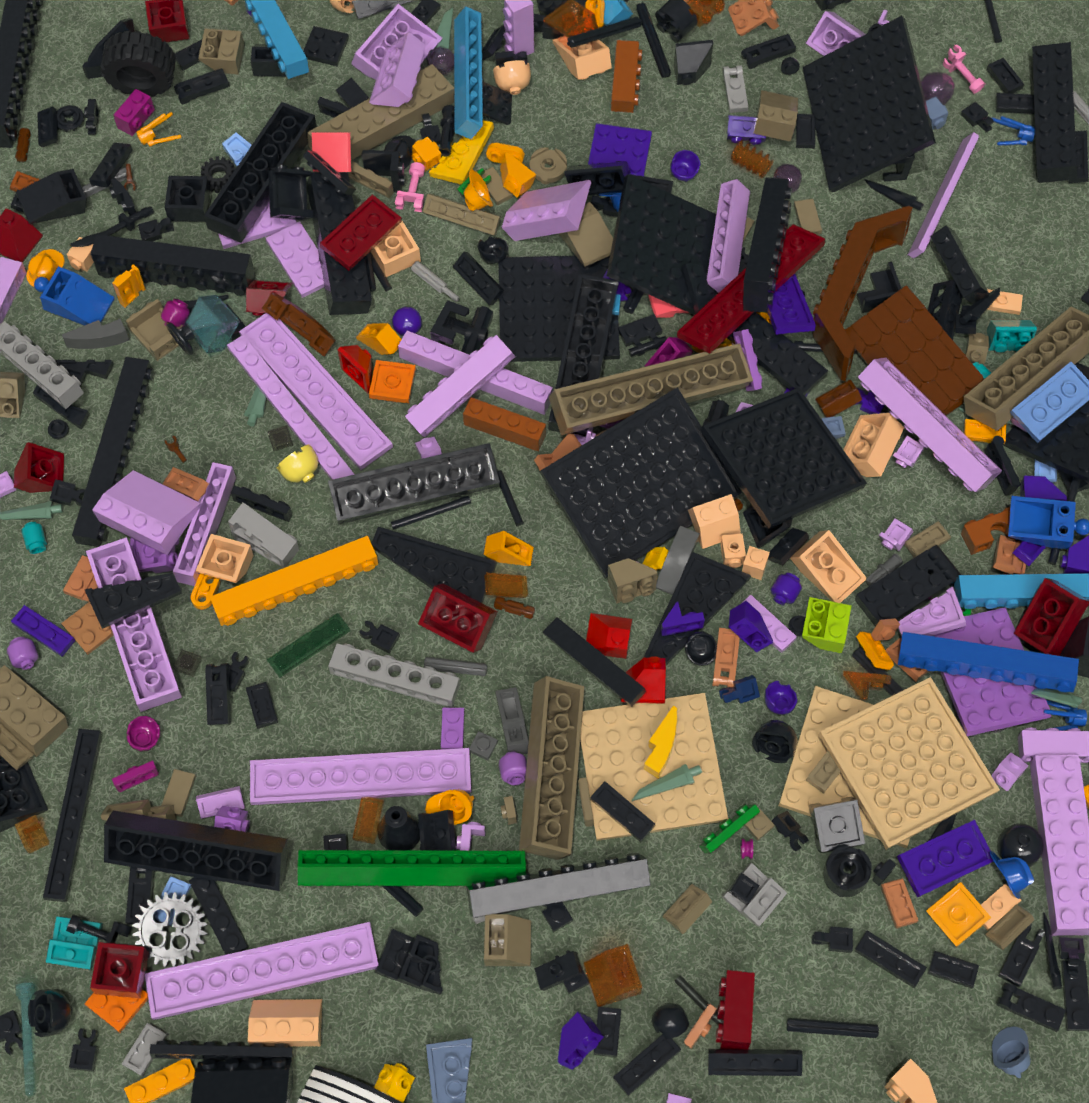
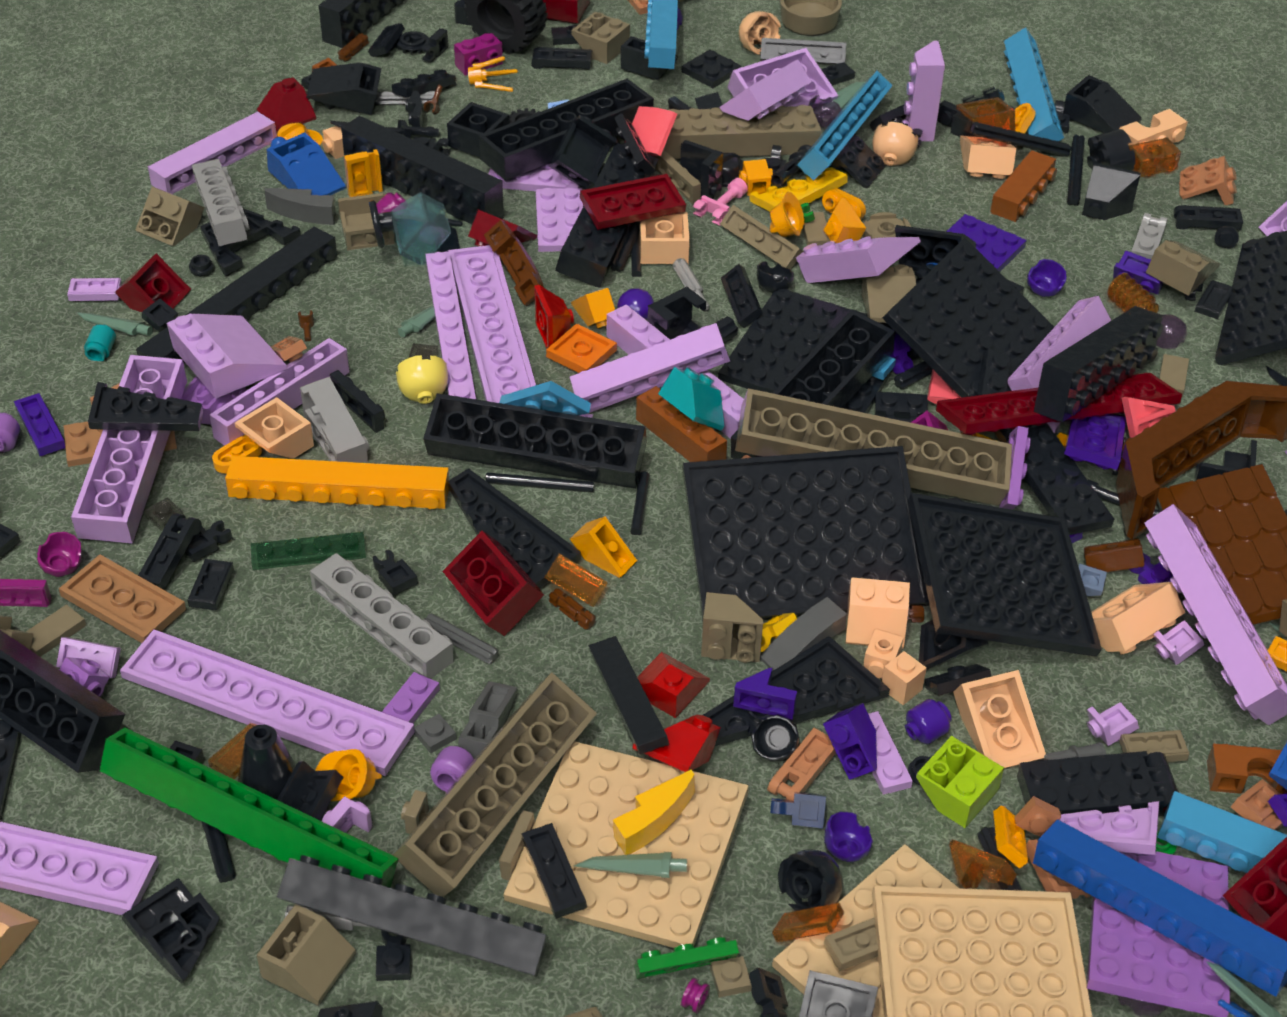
camera: 25 degrees right, 20 degrees down
(209, 746) = (122, 598): none -> medium nougat plate
(410, 453) = (548, 397): none -> dark azure plate
(508, 401) = (694, 396): none -> teal slope
(788, 770) = (808, 922): none -> clear orange tile
(812, 271) = (1143, 414): none -> coral wing

